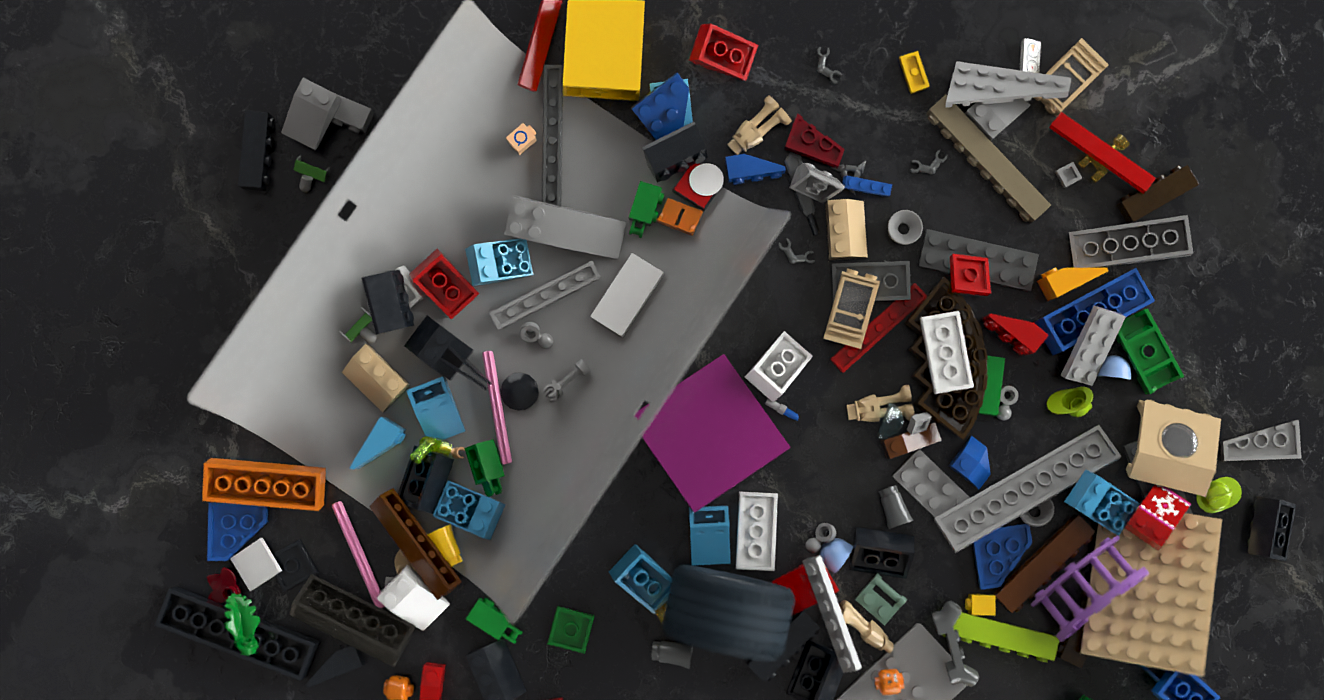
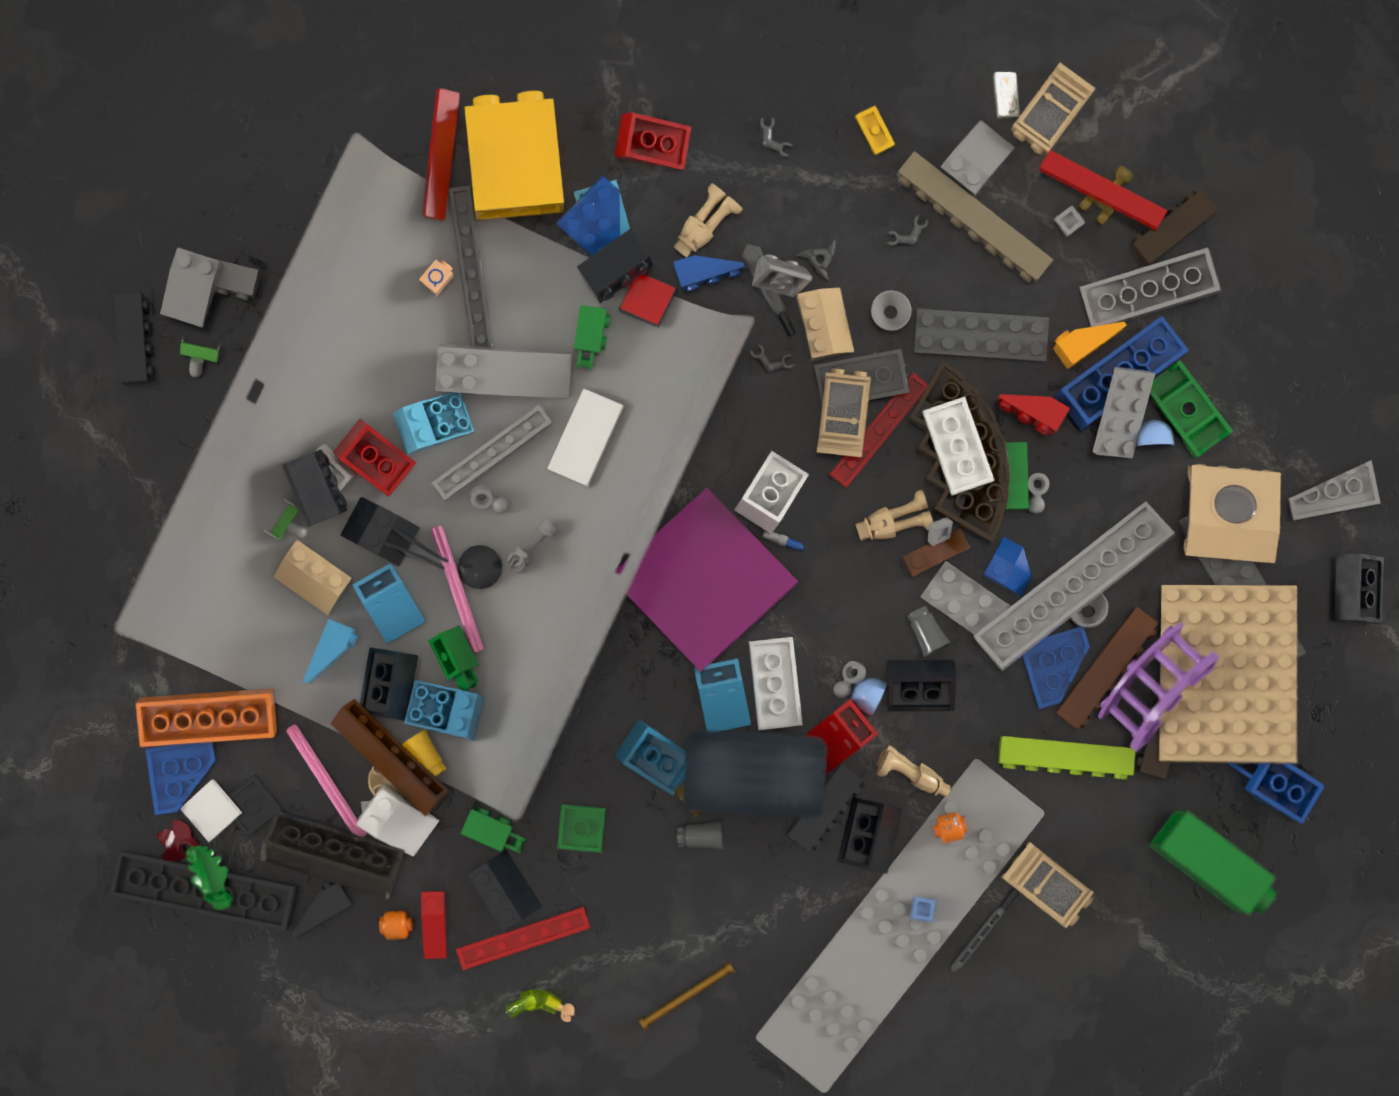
camera: 10 degrees left, 0 degrees up
(437, 445) = (391, 641): clear neon green arm -> none
(671, 213) = (621, 337): orange piece -> none
(706, 179) = (655, 291): white sticker -> none
(810, 143) = (770, 231): dark red wing -> none
(832, 614) = (872, 760): light grey plate -> none
(867, 186) = (840, 270): blue piece -> none
(876, 604) = (924, 745): sand green plate -> none
(891, 423) = (910, 535): clear light blue tile -> none
(956, 669) = (1025, 803): dark grey plate -> none
(970, 275) = (972, 353): red plate -> none
(980, 604) = (1041, 725): yellow brick -> none
(1001, 85) = (968, 132): light grey wing -> none
(1071, 401) = (1110, 480): lime piece -> none
(1102, 502) = (1159, 588): dark azure slope -> none
(1157, 516) = (1223, 593): red slope -> none
(1221, 495) = (1296, 559): lime piece -> none

